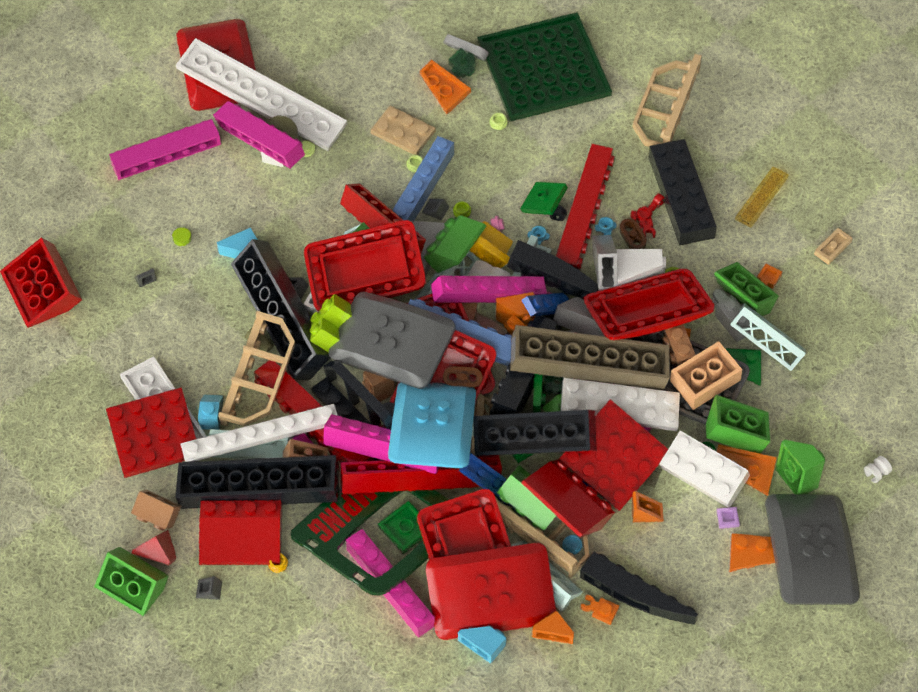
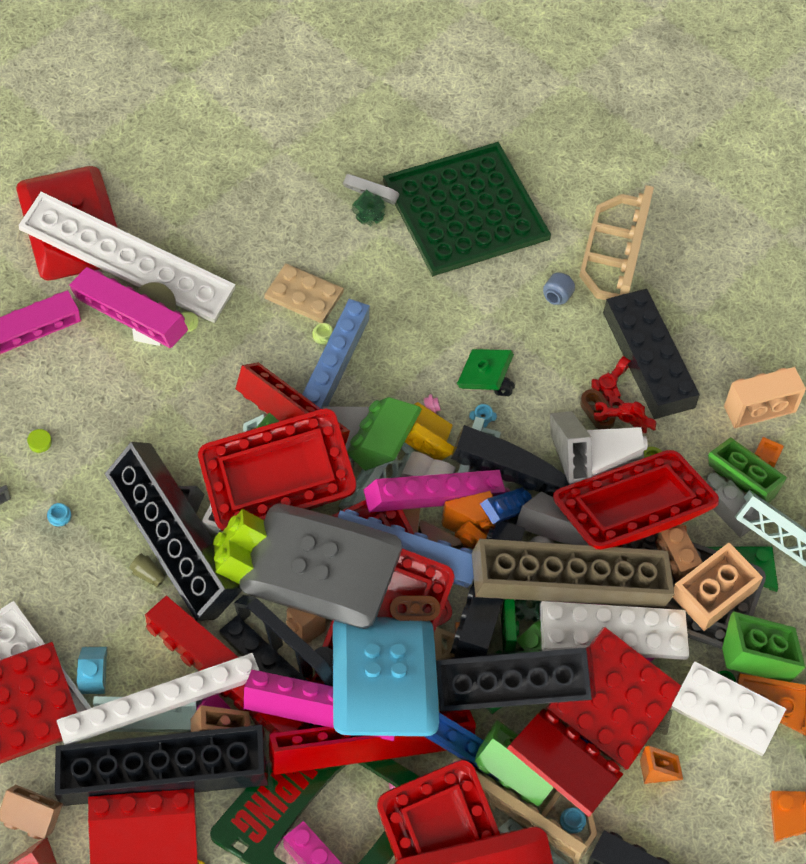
camera: 10 degrees left, 0 degrees up
(193, 294) = (59, 514): none -> medium azure plate
(236, 243) = (109, 447): medium azure slope -> none
(247, 362) = (135, 603): tan plate -> none
(402, 527) = (355, 812): green plate -> none
(436, 208) = (354, 388): dark grey slope -> none
(444, 86) = (348, 236): orange wing -> none
(462, 208) = (386, 388): lime plate -> none
(498, 121) = (418, 277): yellowish green plate -> none
(585, 204) = (535, 376): red brick -> none
(605, 221) = (567, 396): medium azure plate -> none
(613, 135) = (558, 288): none -> sand blue head
(656, 238) = (628, 412): none -> red piece
(728, 517) = (762, 769): lavender tile -> none
(761, 197) = (745, 352): clear yellow tile -> none
(770, 231) = (764, 397): none -> light nougat brick

